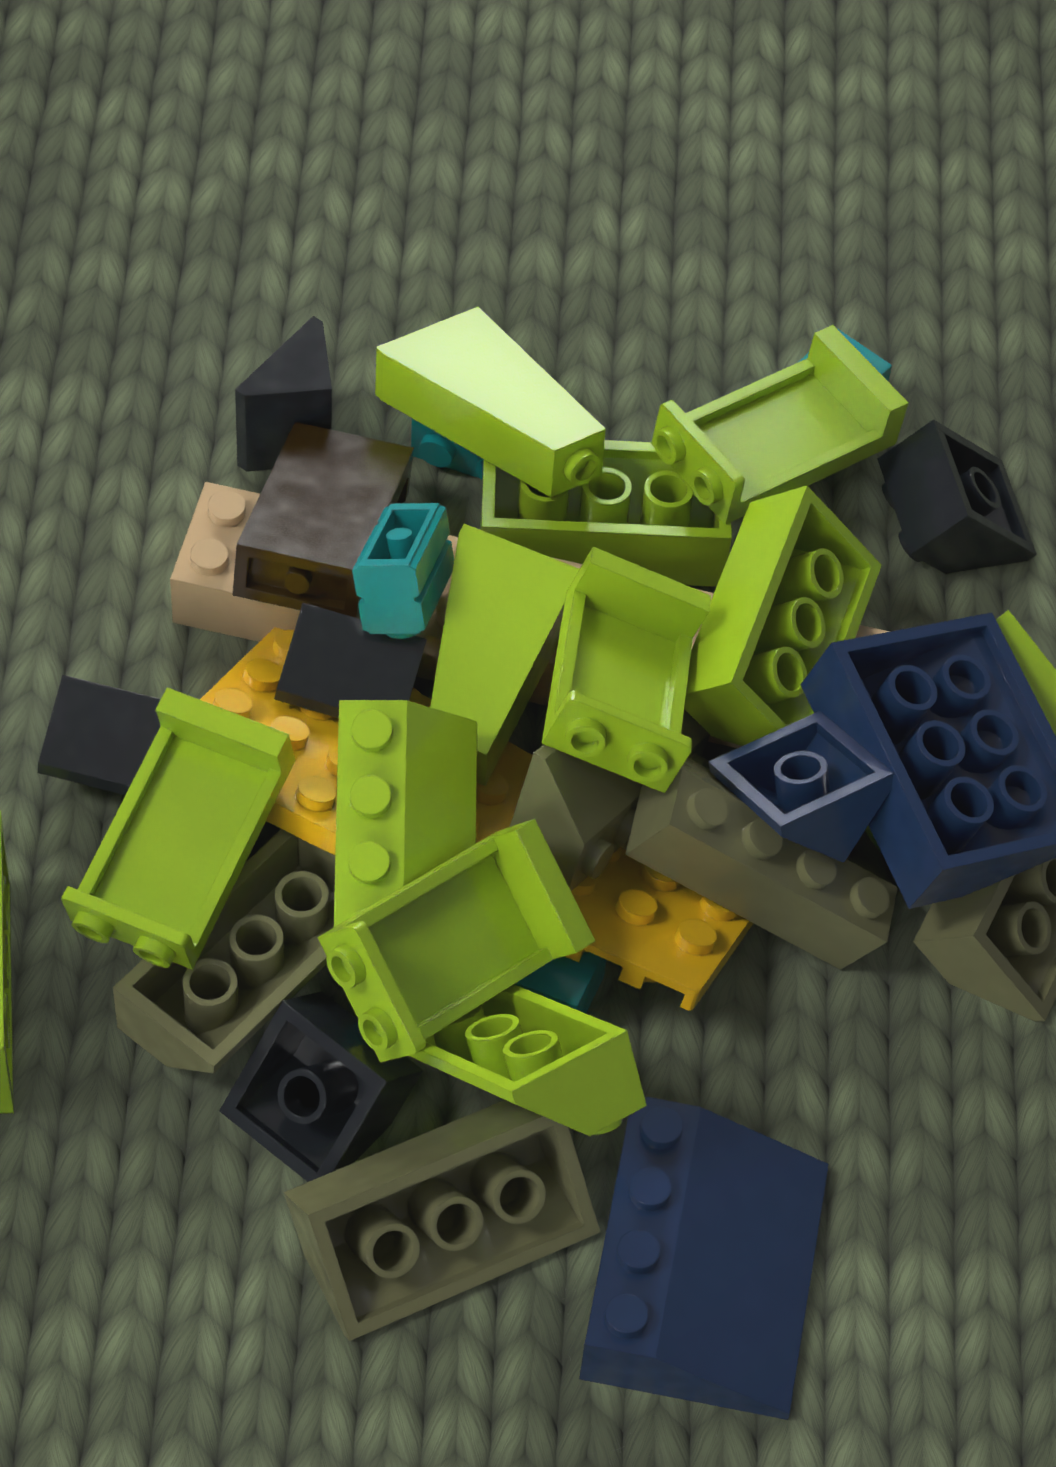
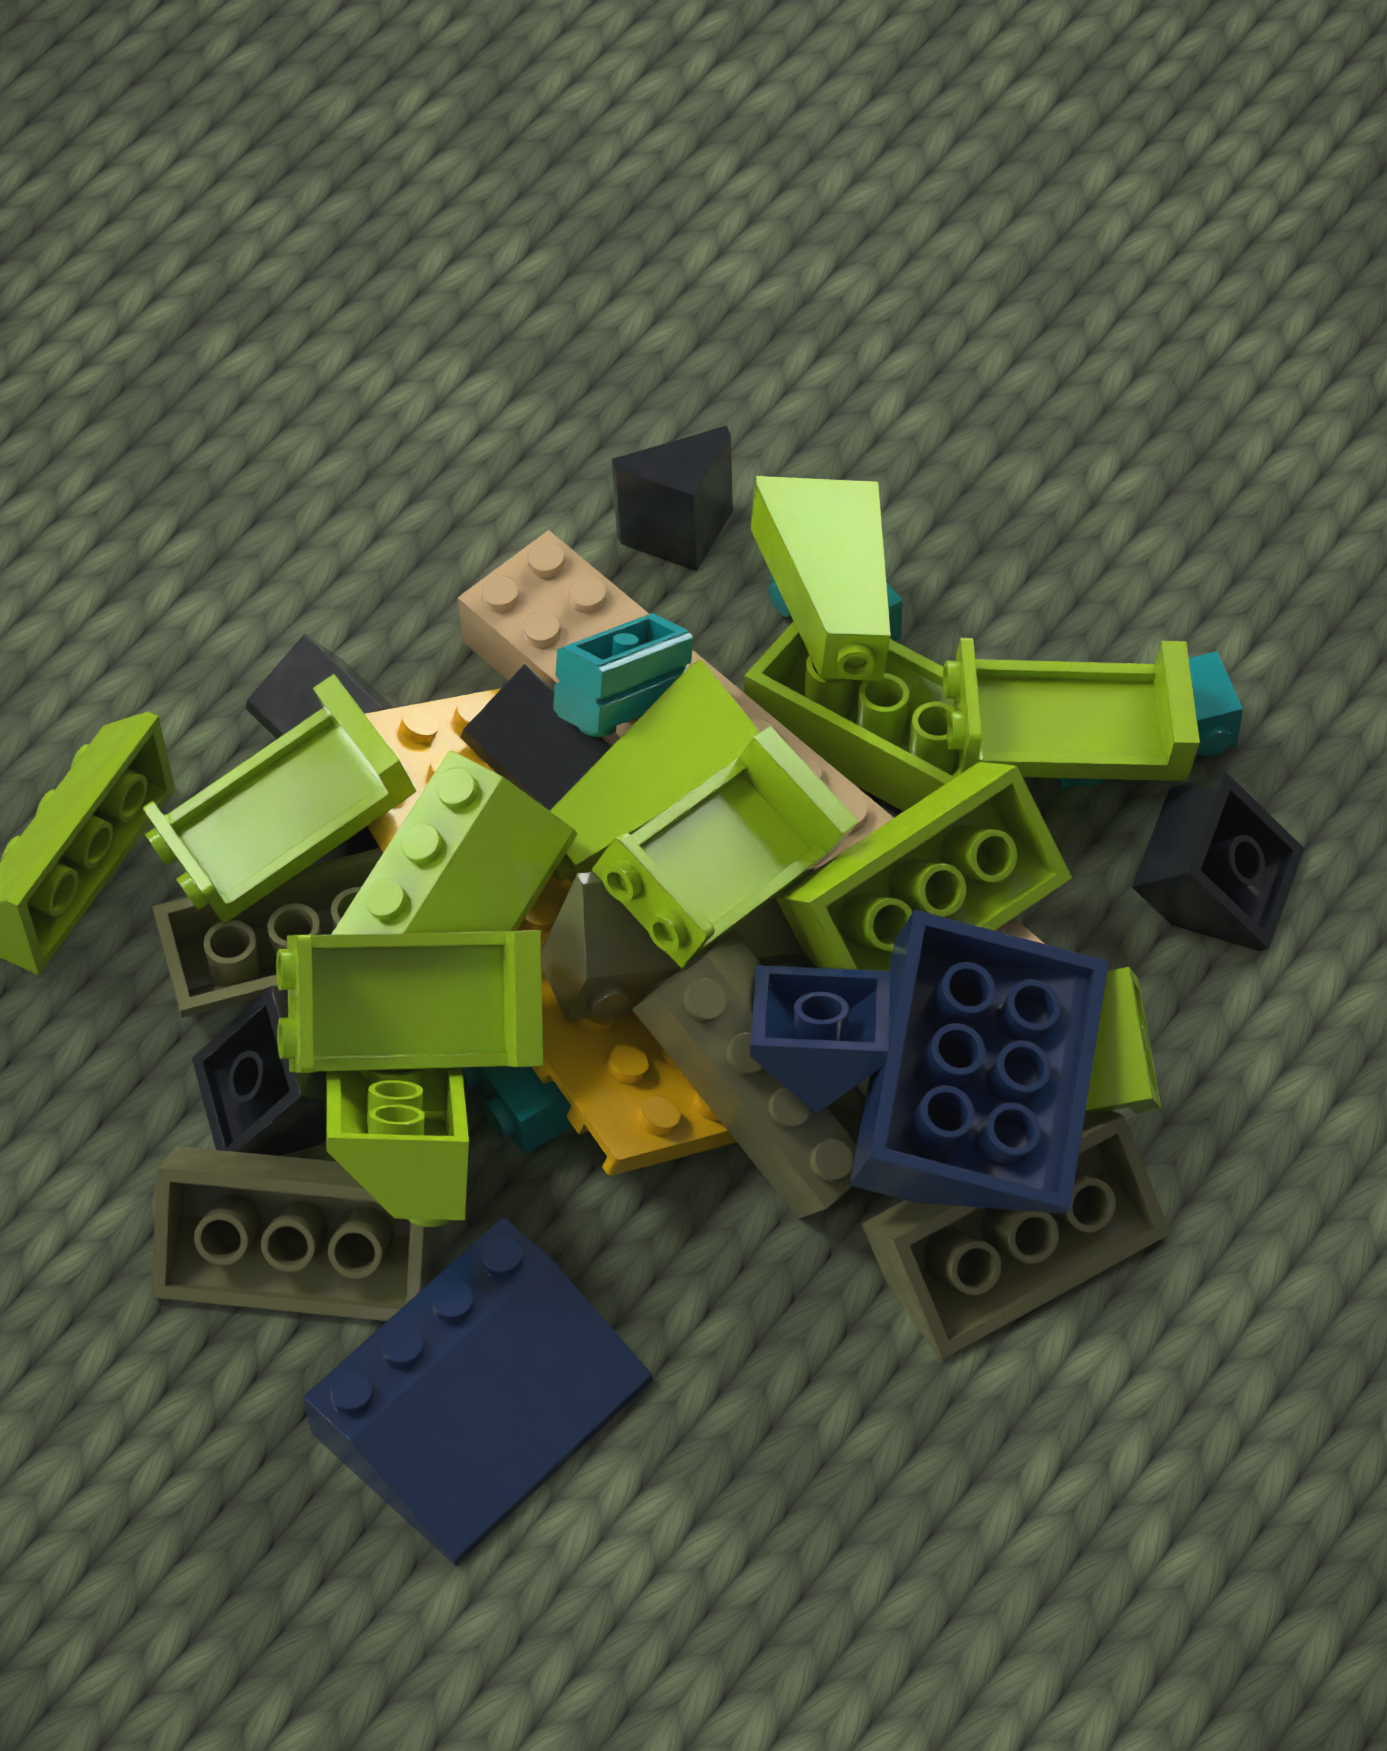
camera: 40 degrees right, 0 degrees up
(318, 518) = (610, 584): dark brown panel -> none

